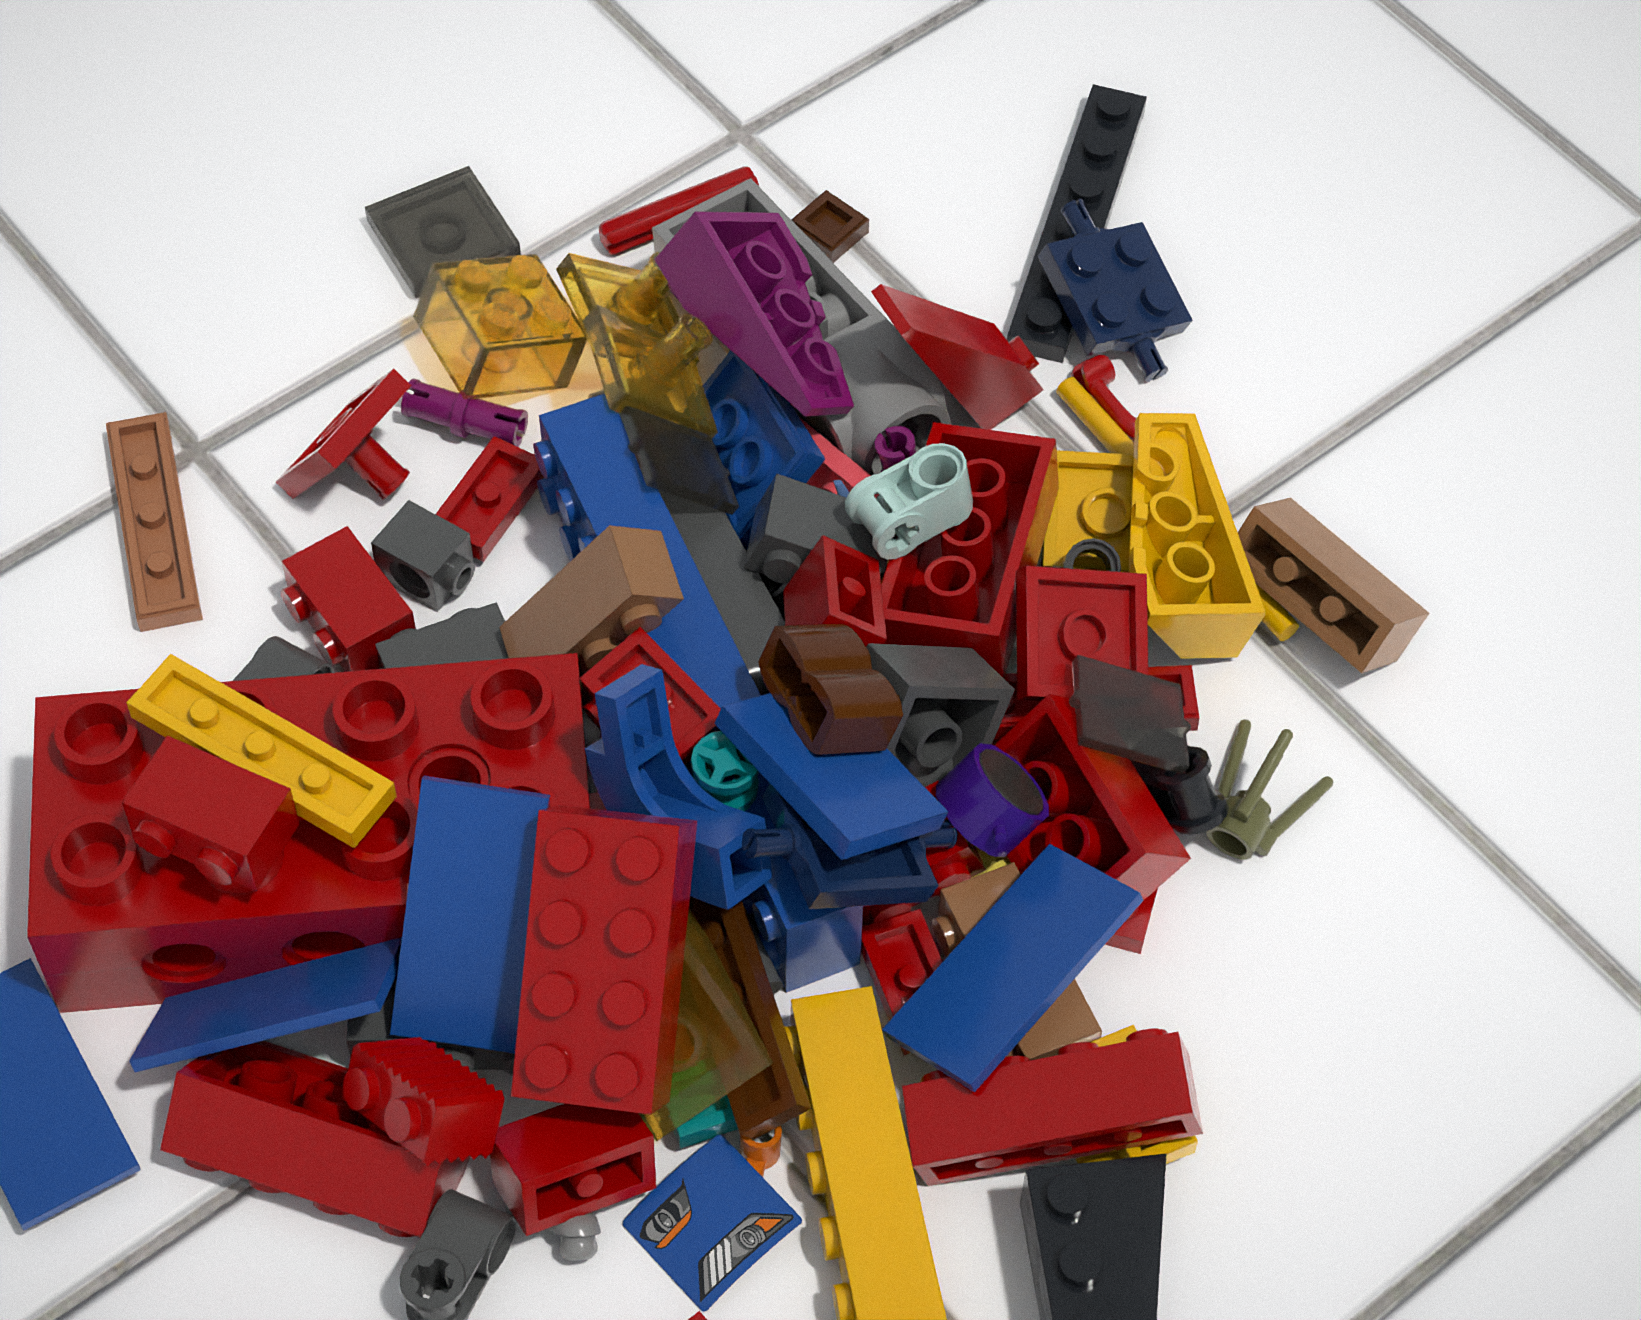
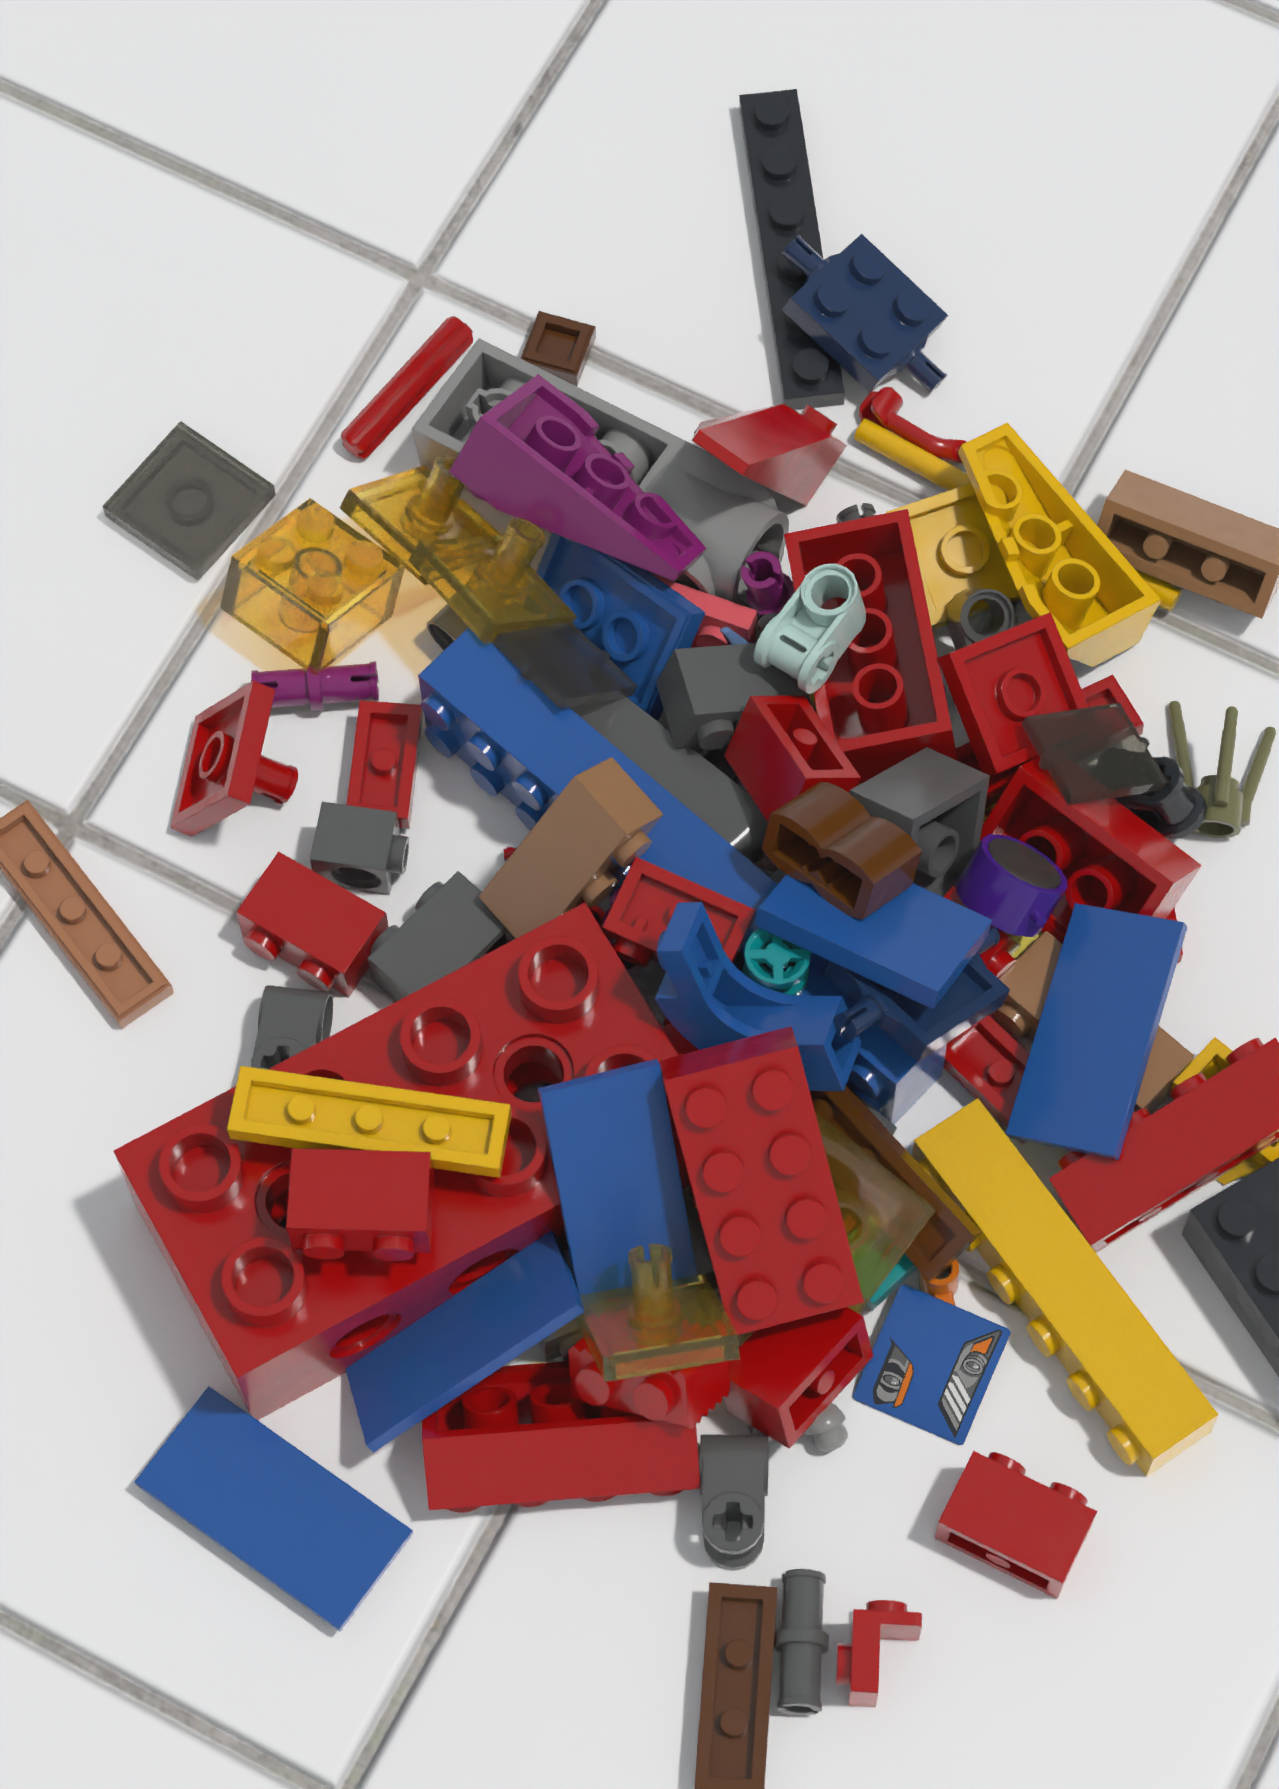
camera: 20 degrees left, 10 degrees up
(442, 1049) = (656, 1321): none -> clear yellow tile

